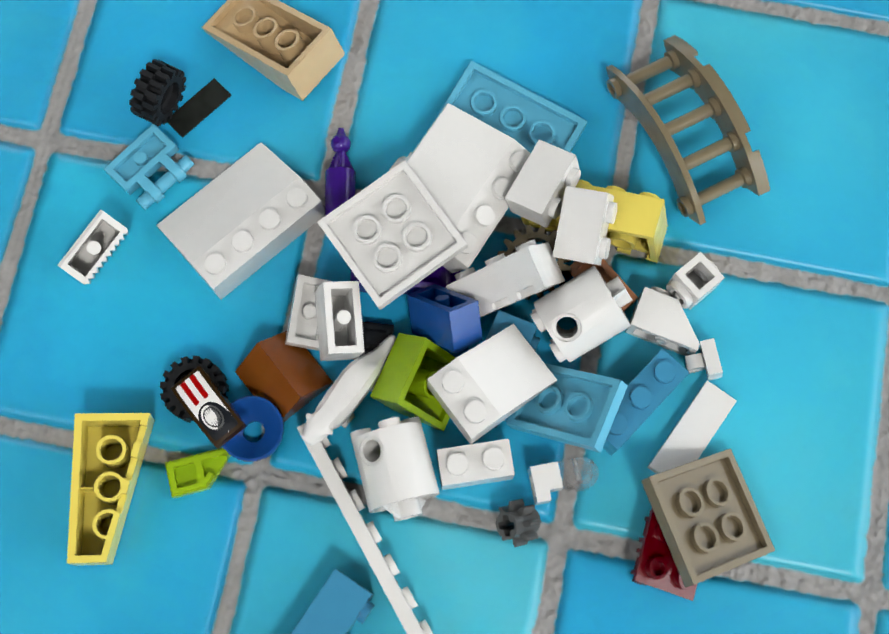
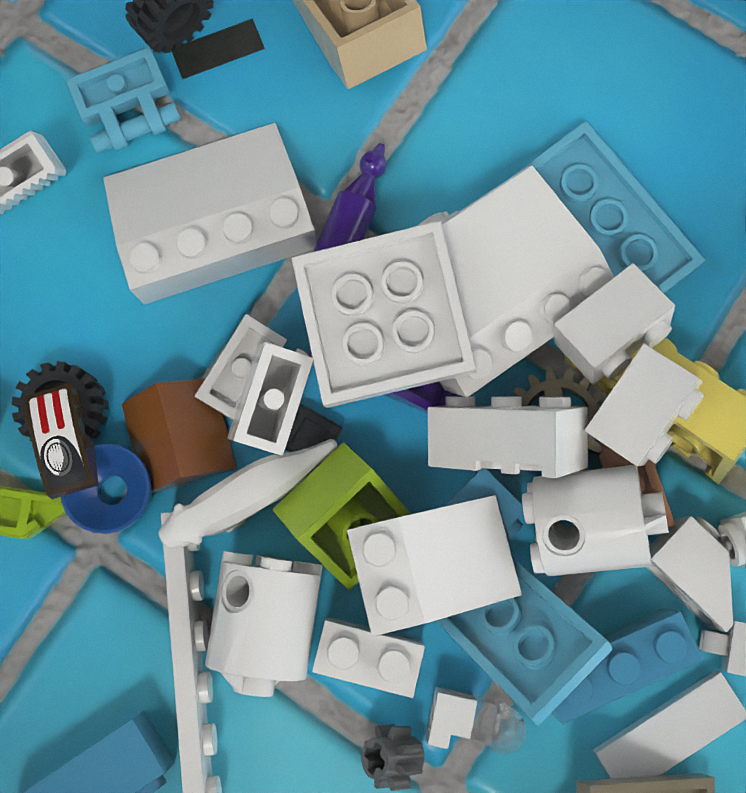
camera: 25 degrees right, 5 degrees up
(445, 317) = (409, 450): blue brick -> none

